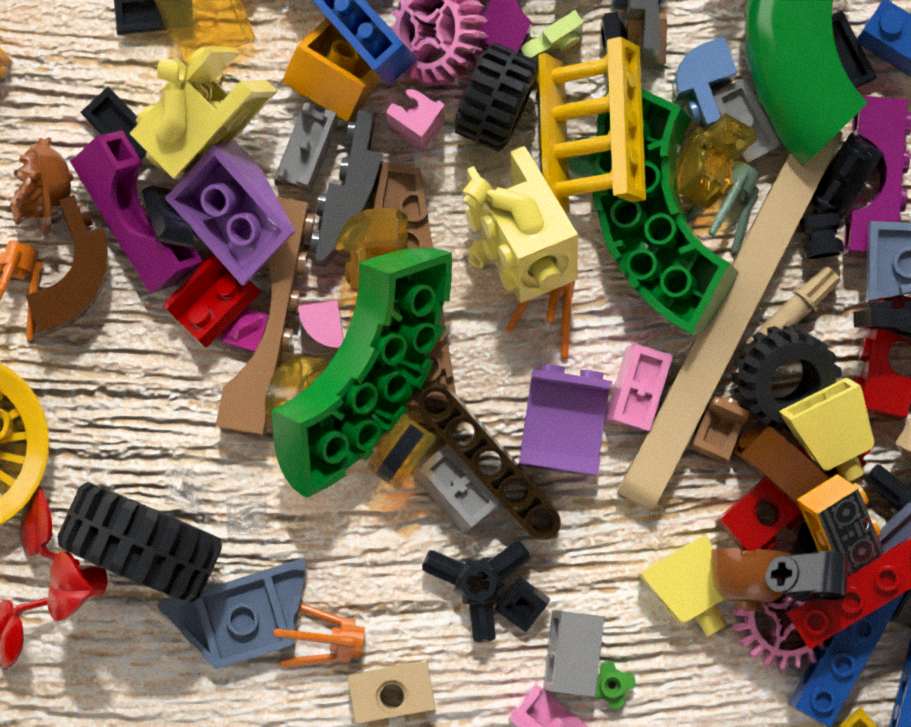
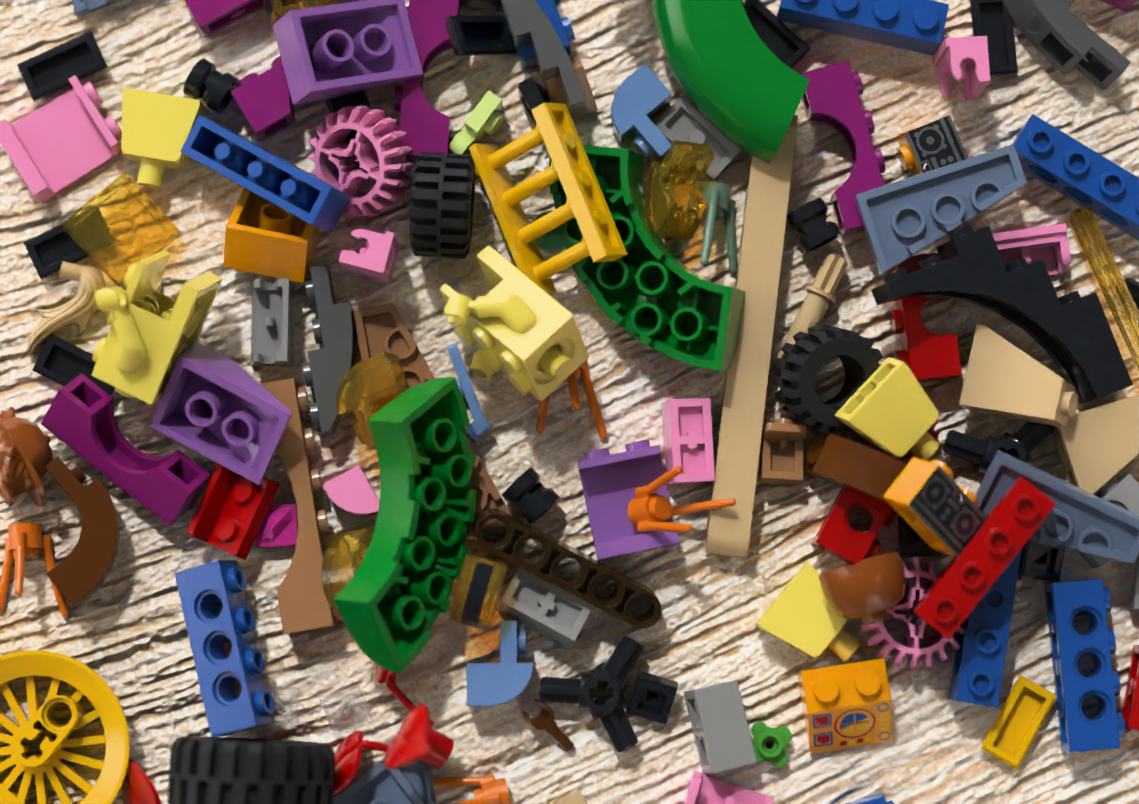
camera: 20 degrees left, 0 degrees up
(136, 74) = (75, 311): none -> tan piece
(149, 399) = (207, 634): none -> blue brick
(166, 222) = (158, 448): black tile -> none
(295, 562) = (413, 740): none -> red plant
(393, 539) = (500, 682): none -> medium blue brick
(420, 590) = (546, 722): none -> reddish brown hand
(457, 305) = (480, 424): none -> medium blue piece
(479, 384) = (530, 496): none -> black wheel
(583, 436) = (651, 510): none -> orange plant
(694, 675) = (846, 705): none -> light orange slope
(810, 576) = (923, 567): black piece -> none
(846, 176) = (815, 157): black hinge -> none

